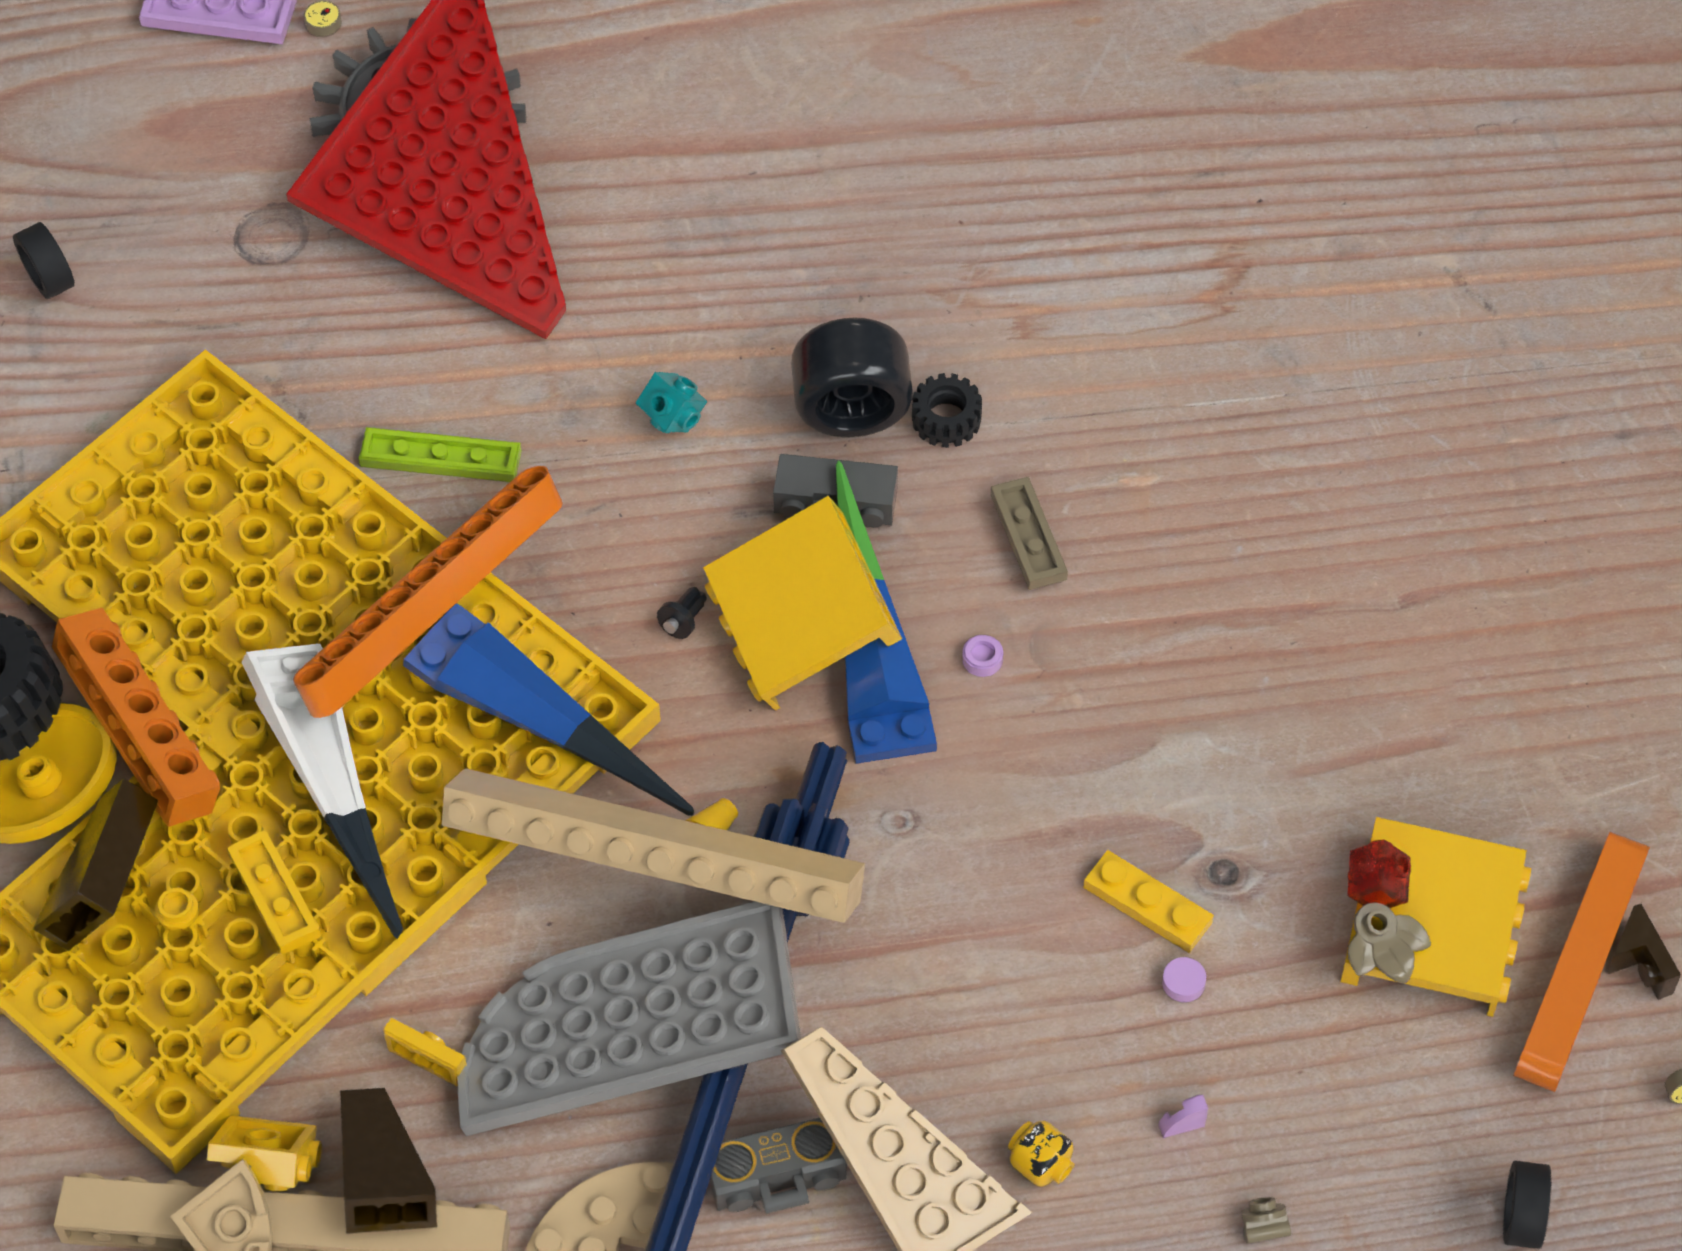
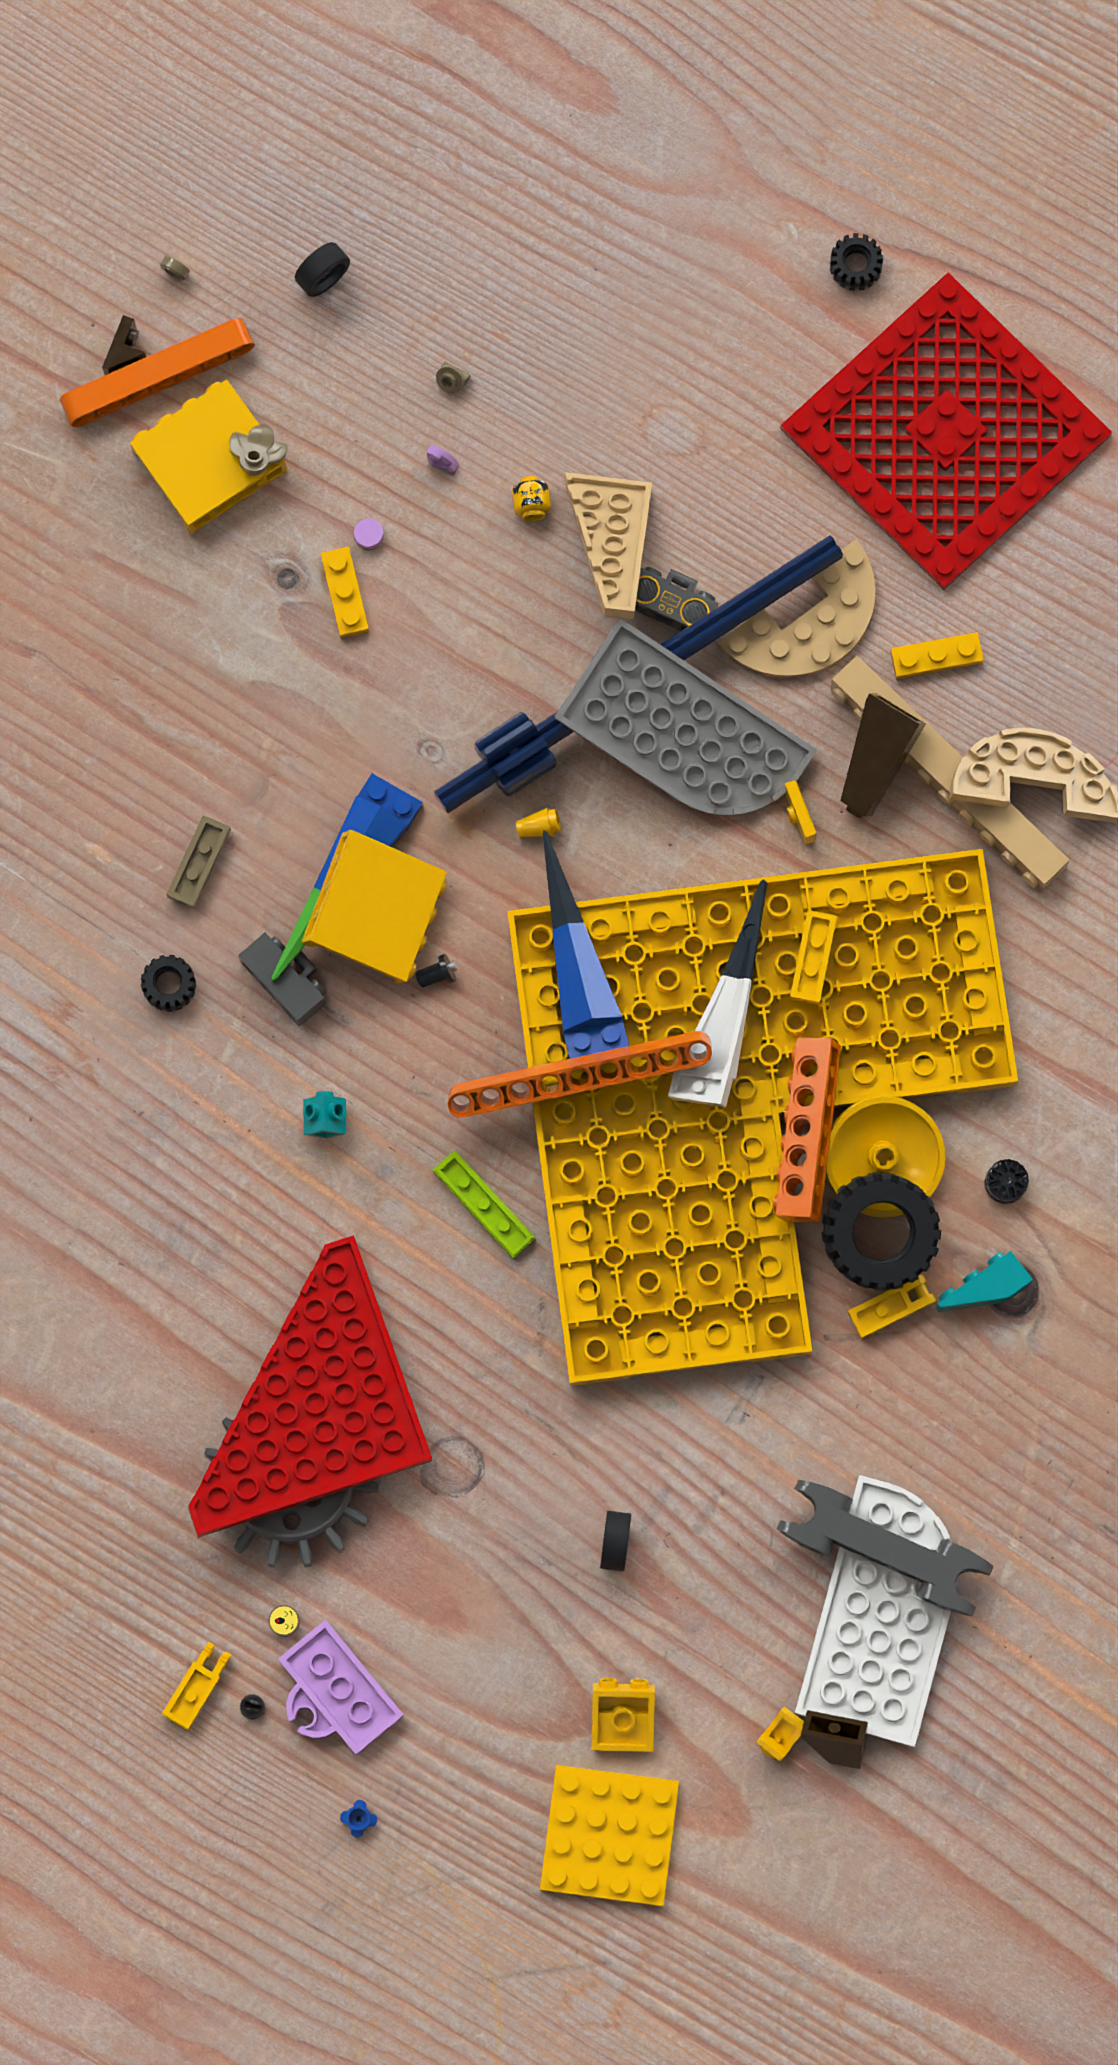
camera: 135 degrees left, 20 degrees up
(98, 866) = (897, 1041): dark brown slope -> none
(176, 909) = (872, 992): yellow plate -> none
(276, 1150) = (928, 813): yellow plate -> none
(654, 845) = (596, 800): tan brick -> none
(851, 377) = (215, 1027): black wheel -> none
(982, 655) = (294, 810): lavender tile -> none
(1379, 874) = (227, 479): clear red brick -> none

